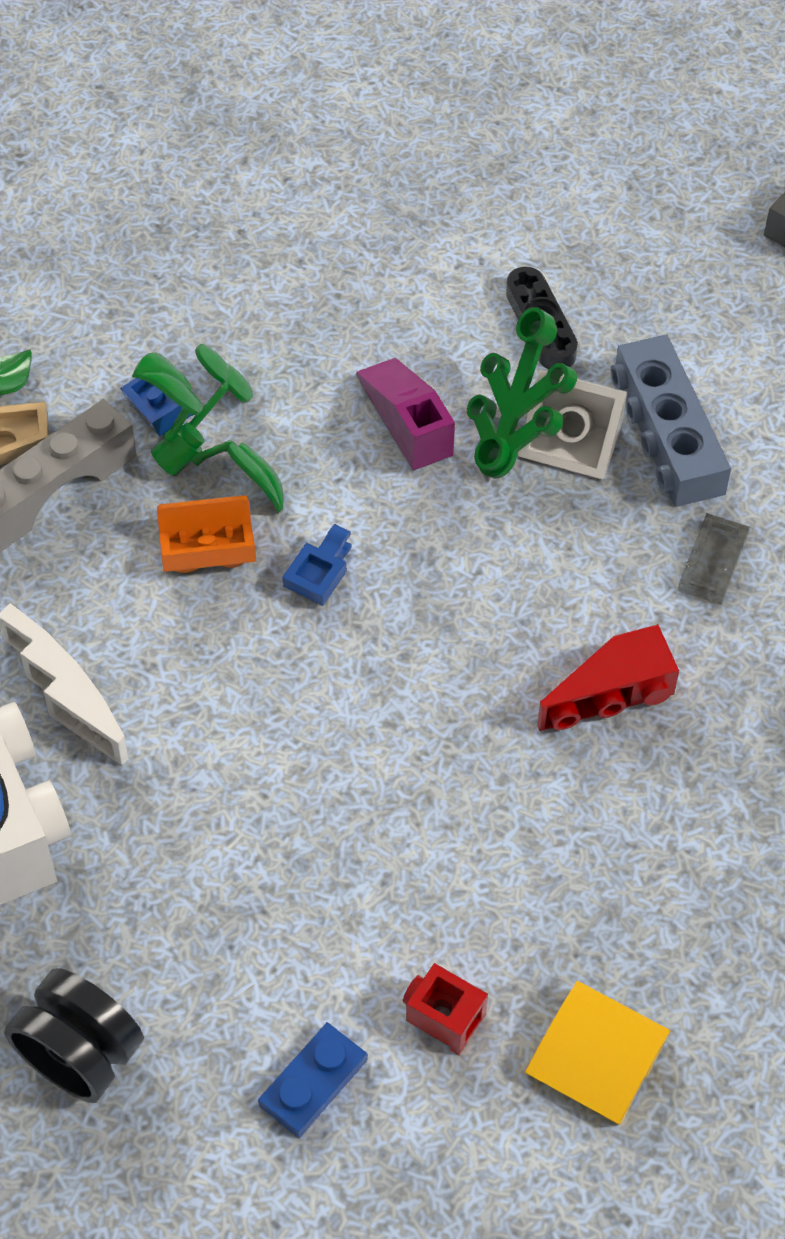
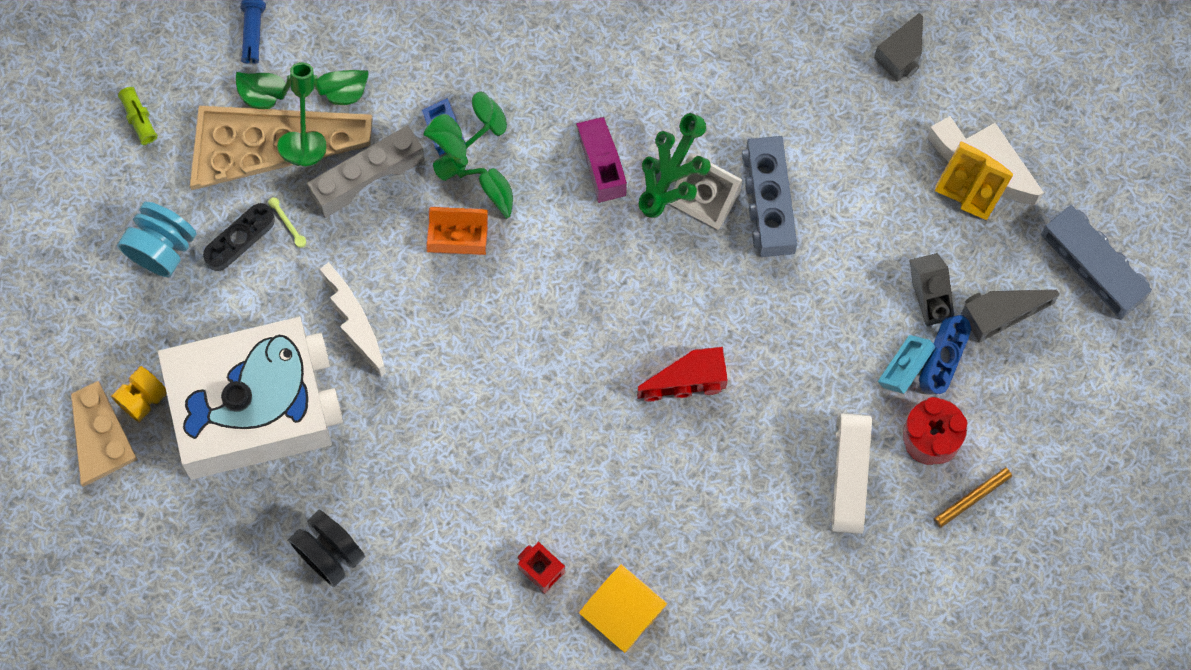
camera: 10 degrees right, 15 degrees up
(313, 1079) = (458, 594): blue plate -> none
(320, 569) = (523, 266): blue plate -> none
(545, 300) = (711, 81): black beam -> none
(713, 559) = (774, 300): clear smoke tile -> none

